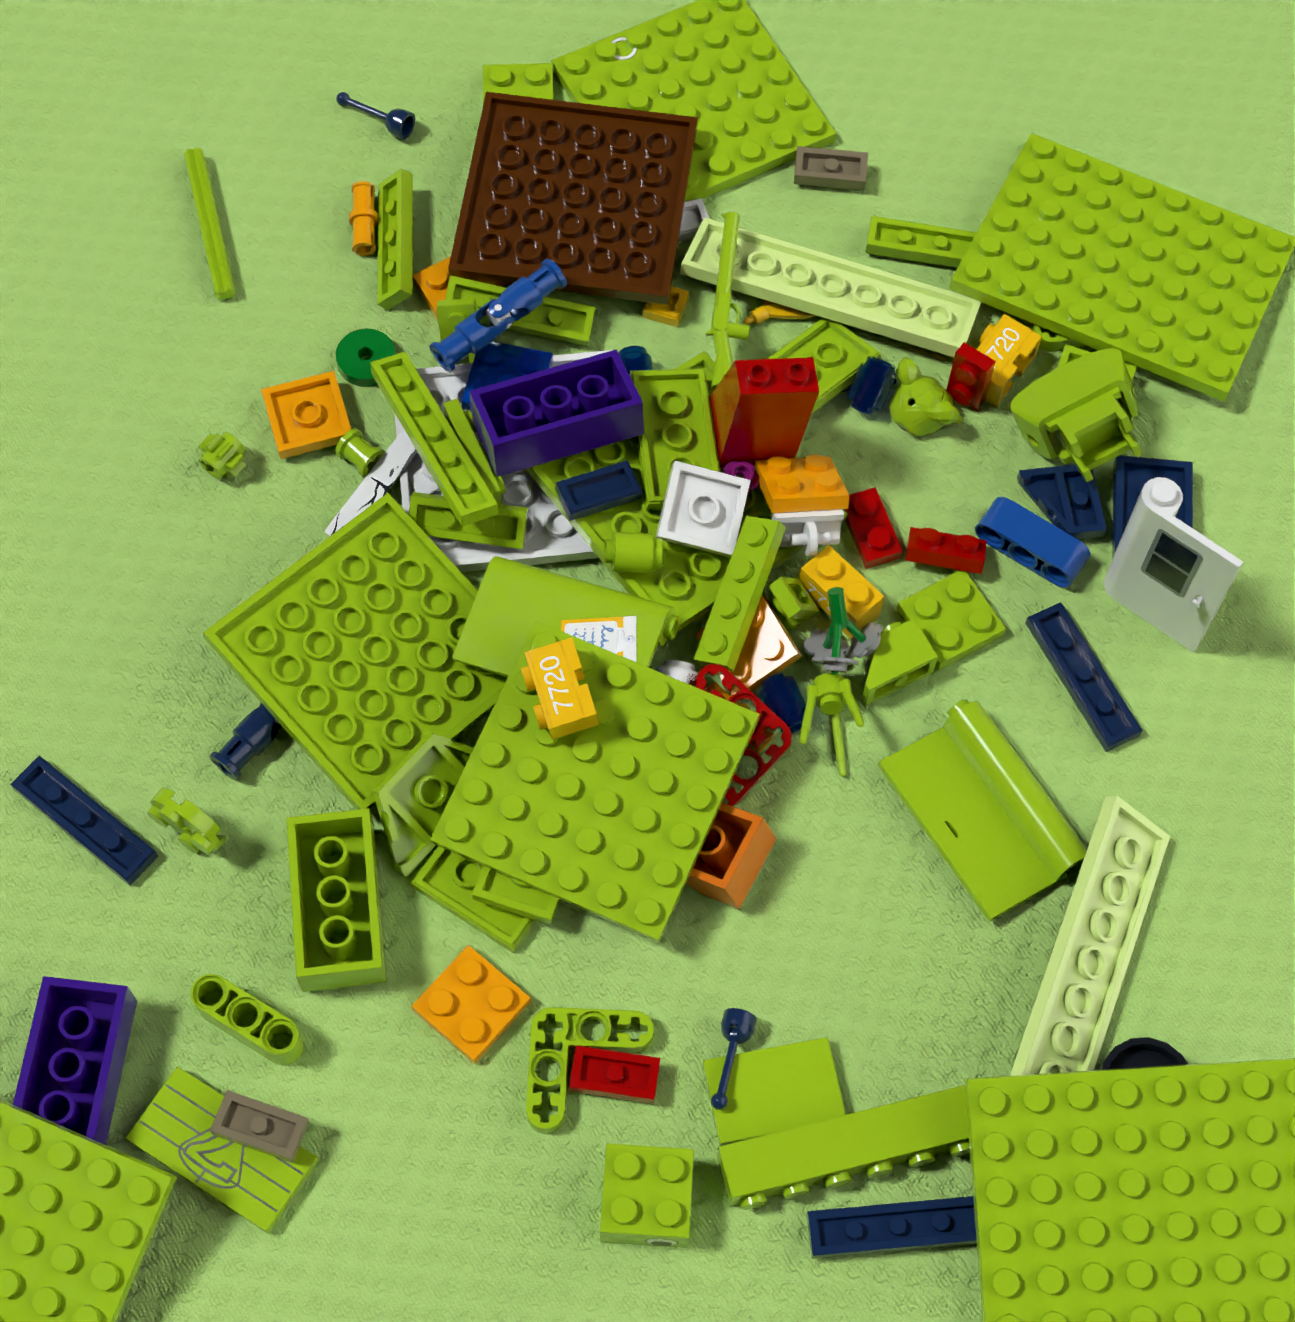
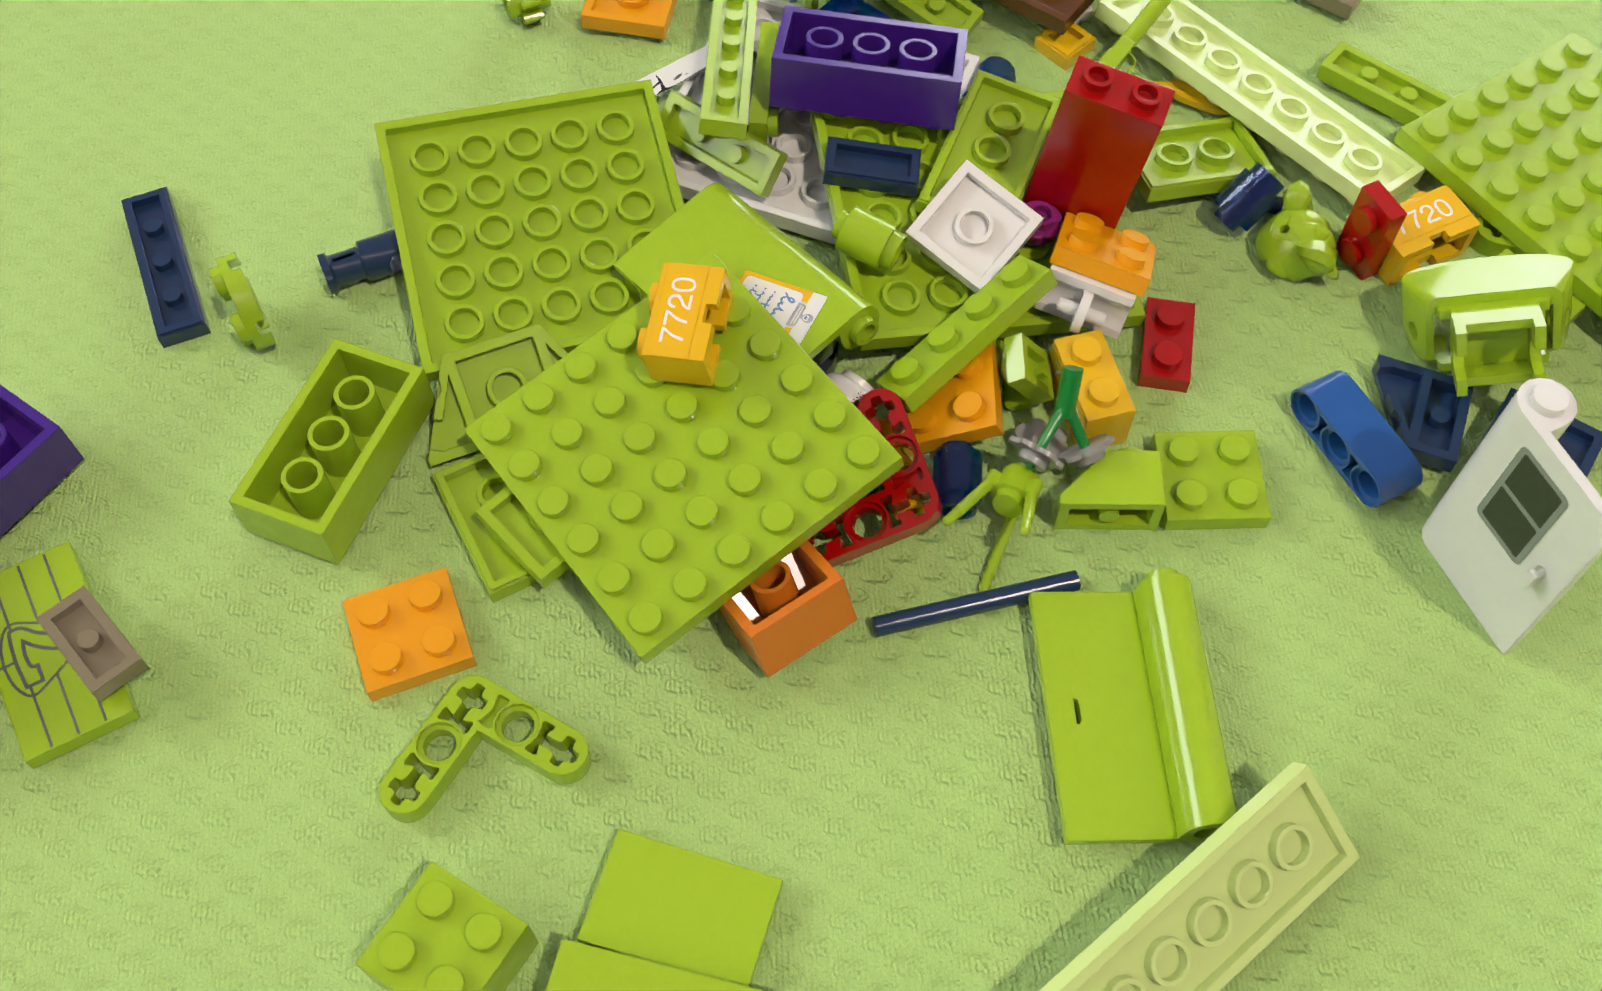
camera: 30 degrees right, 5 degrees down
(238, 1002) = (155, 506): lime beam -> none
(358, 451) = (657, 42): lime bush -> none
(614, 1074) = (509, 791): red plate -> none
(737, 1028) = (680, 813): dark blue hinge -> none
(843, 787) = (972, 604): none -> dark blue bar
(946, 550) = (1239, 400): red plate -> none
(1083, 677) = (1342, 619): dark blue tile -> none

